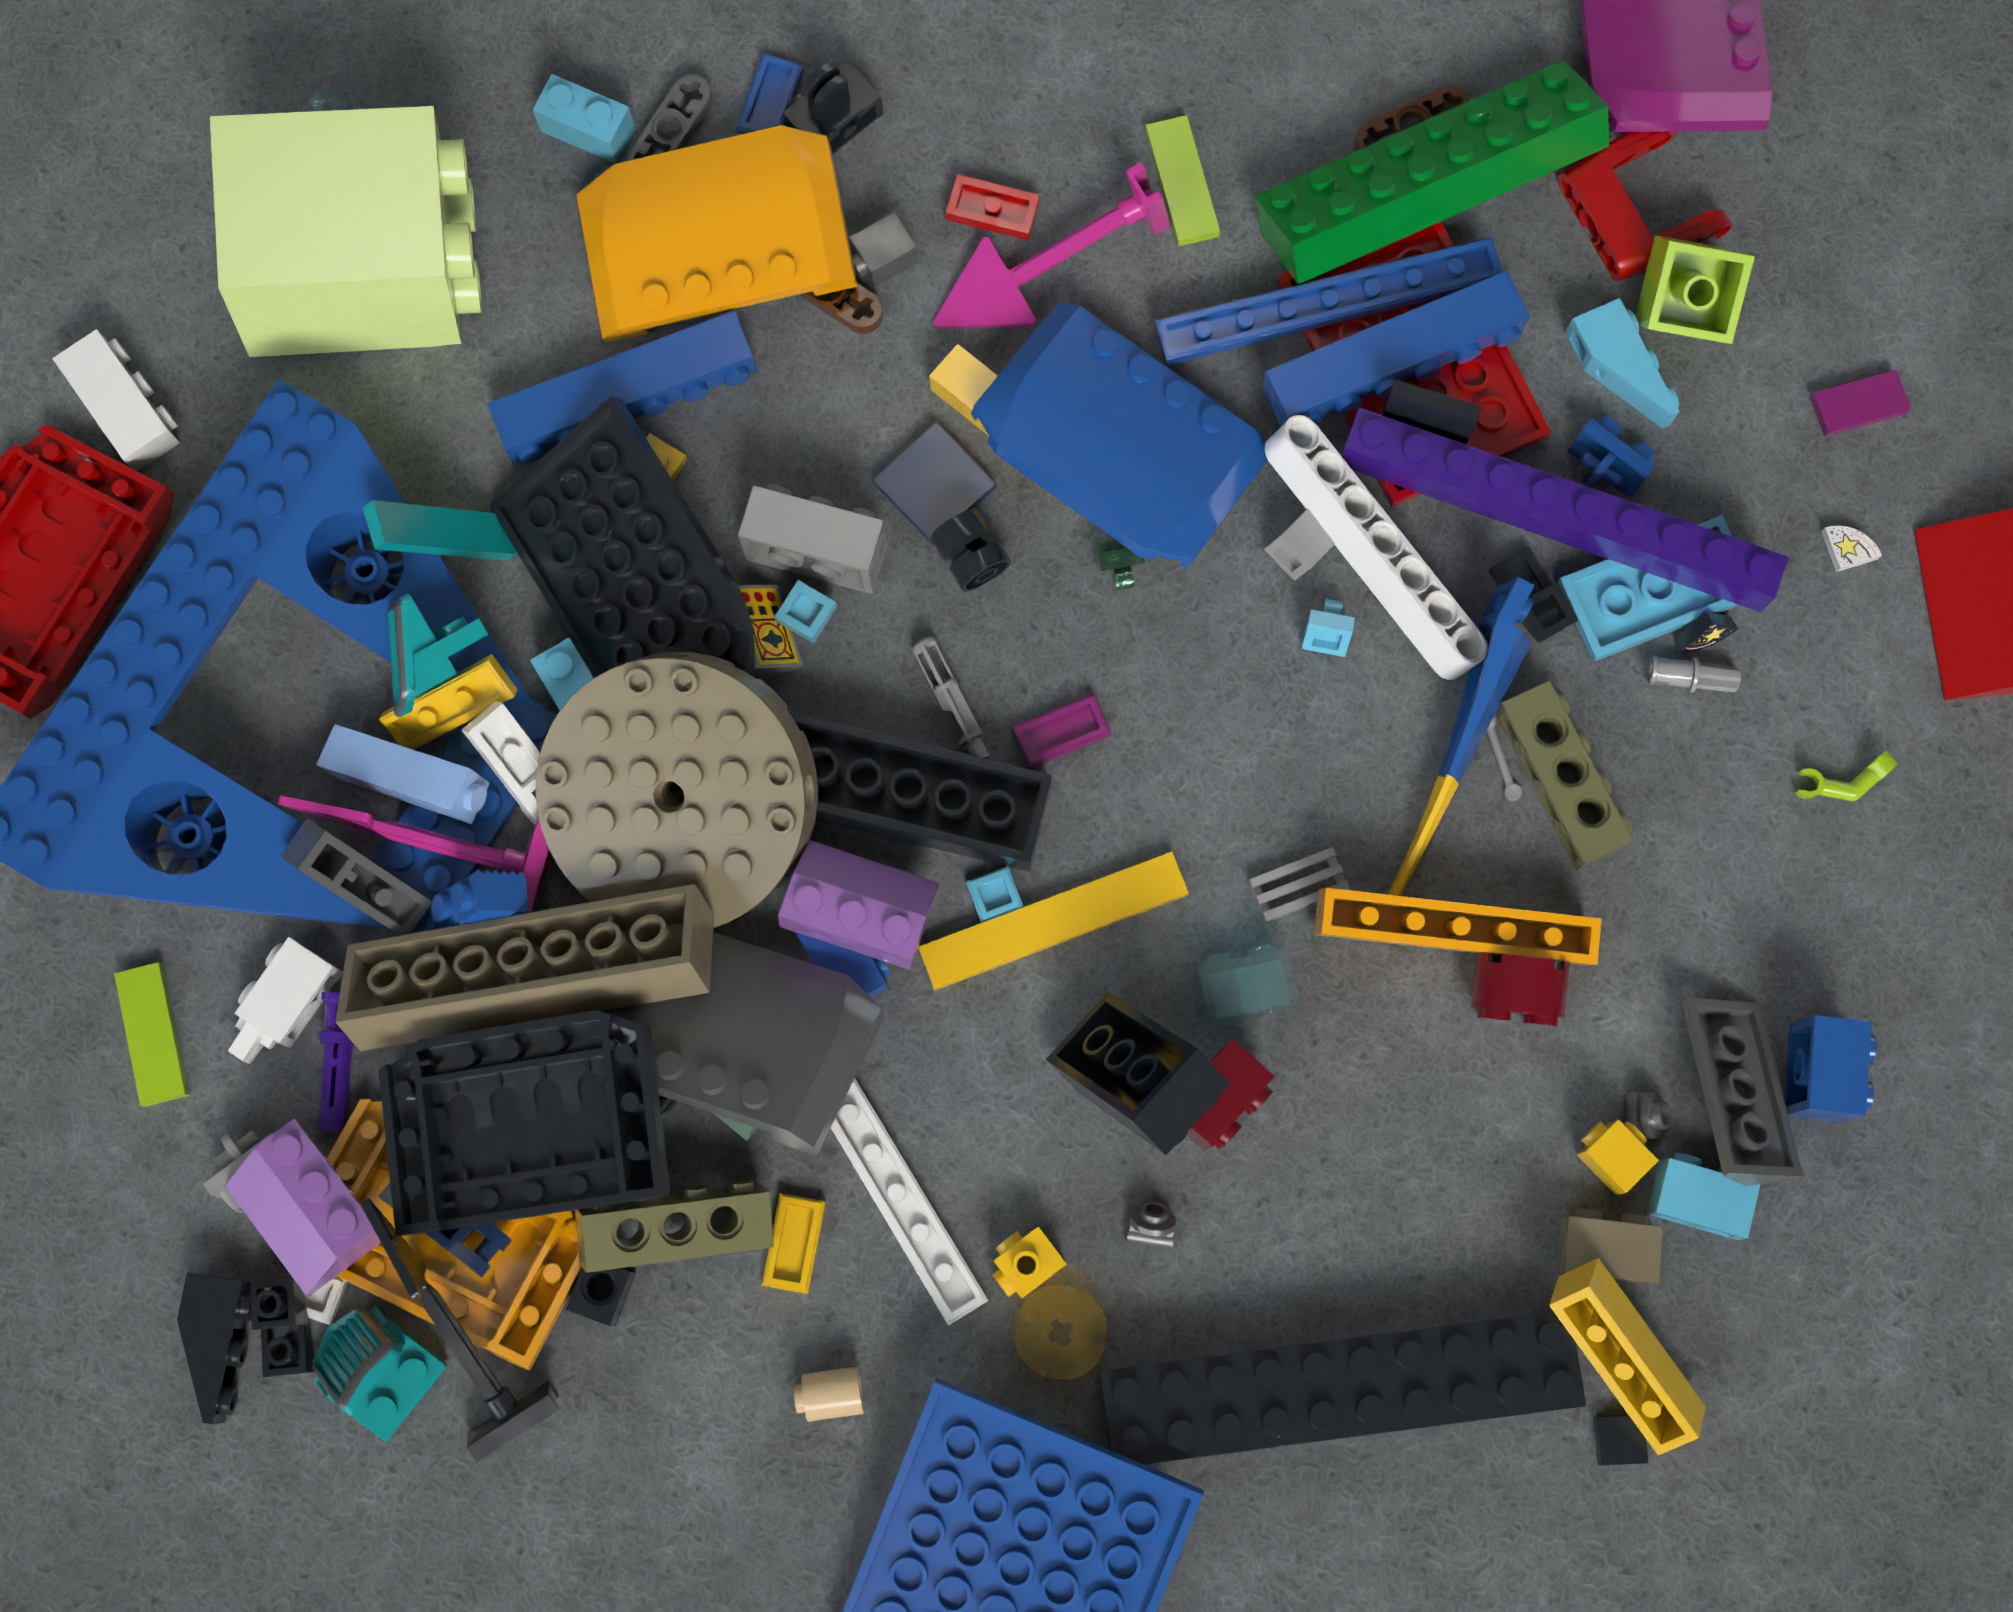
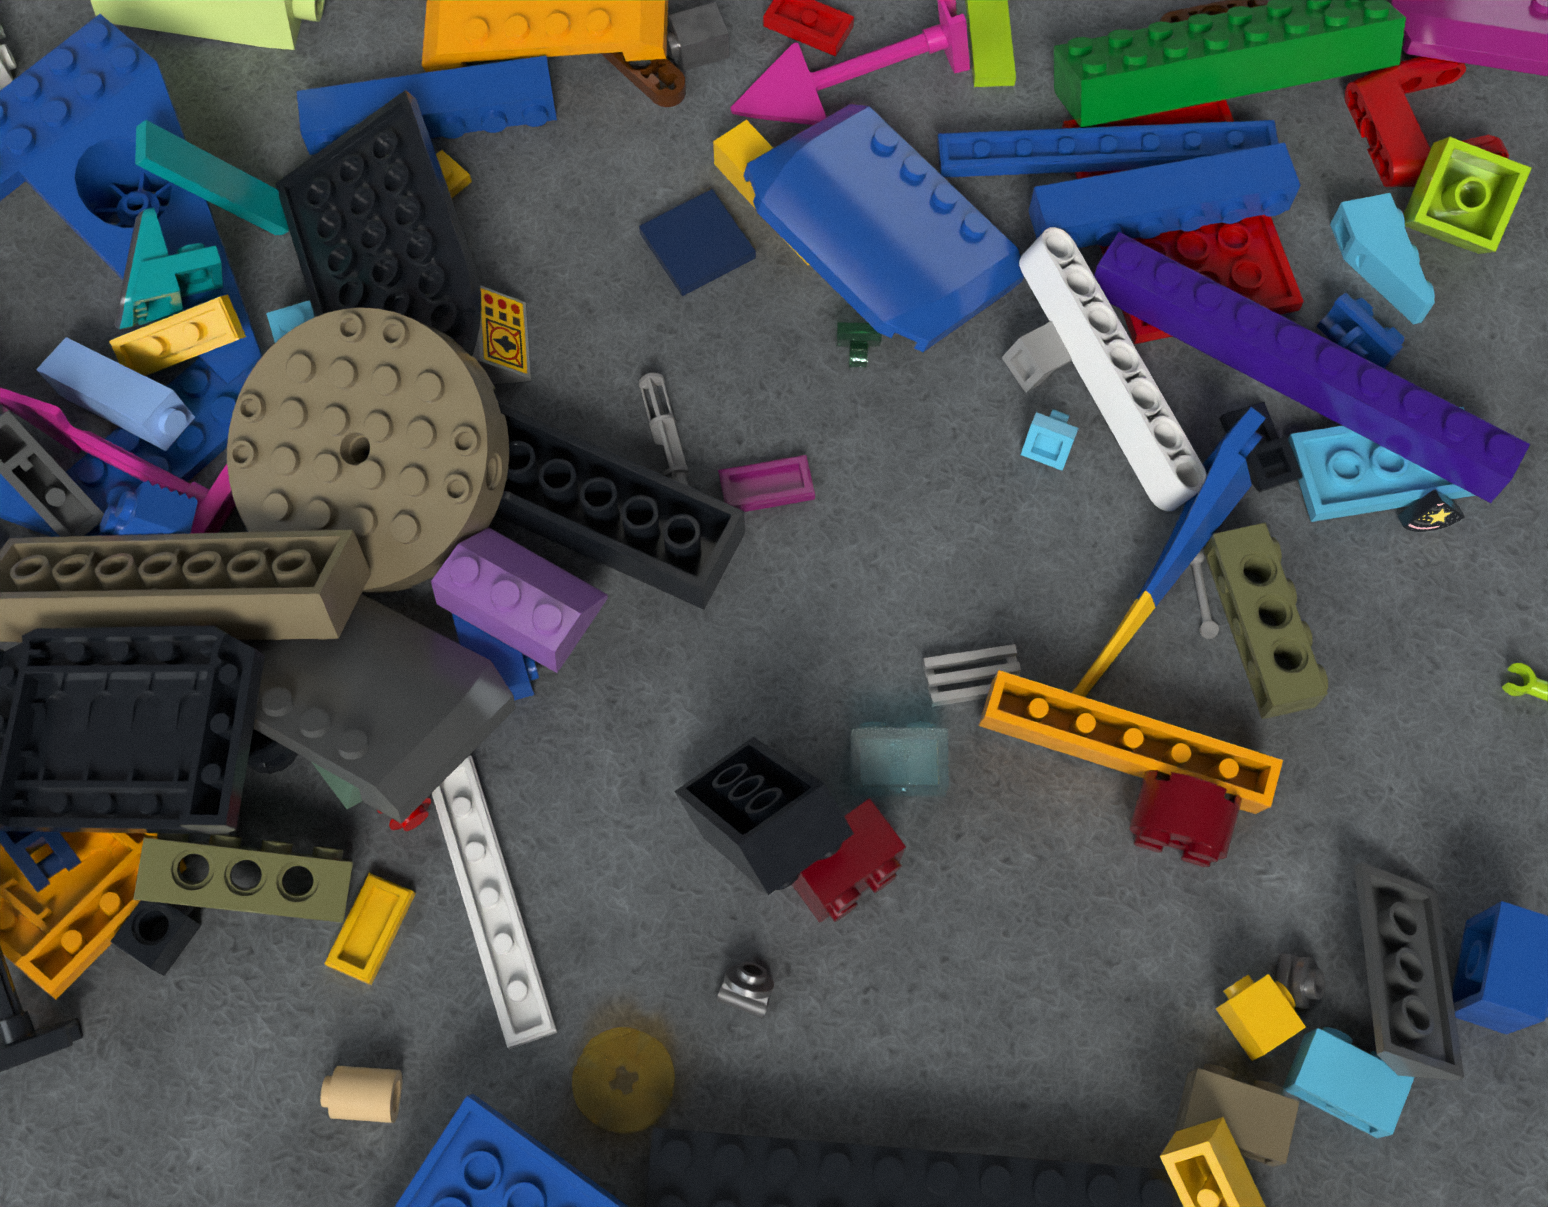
camera: 10 degrees right, 10 degrees down
(507, 753) = (214, 384): white plate -> none
(805, 611) = (544, 325): medium azure tile -> none
(813, 538) = (566, 259): light grey brick -> none
(967, 544) = (716, 300): black wheel -> none
(994, 894) = (663, 625): medium azure tile -> none
(1026, 1262) = (604, 998): yellow brick -> none
(1053, 921) = (715, 661): yellow tile -> none
(1432, 411) = (1191, 244): black tile -> none
(1693, 674) = (1412, 551): light grey axle -> none

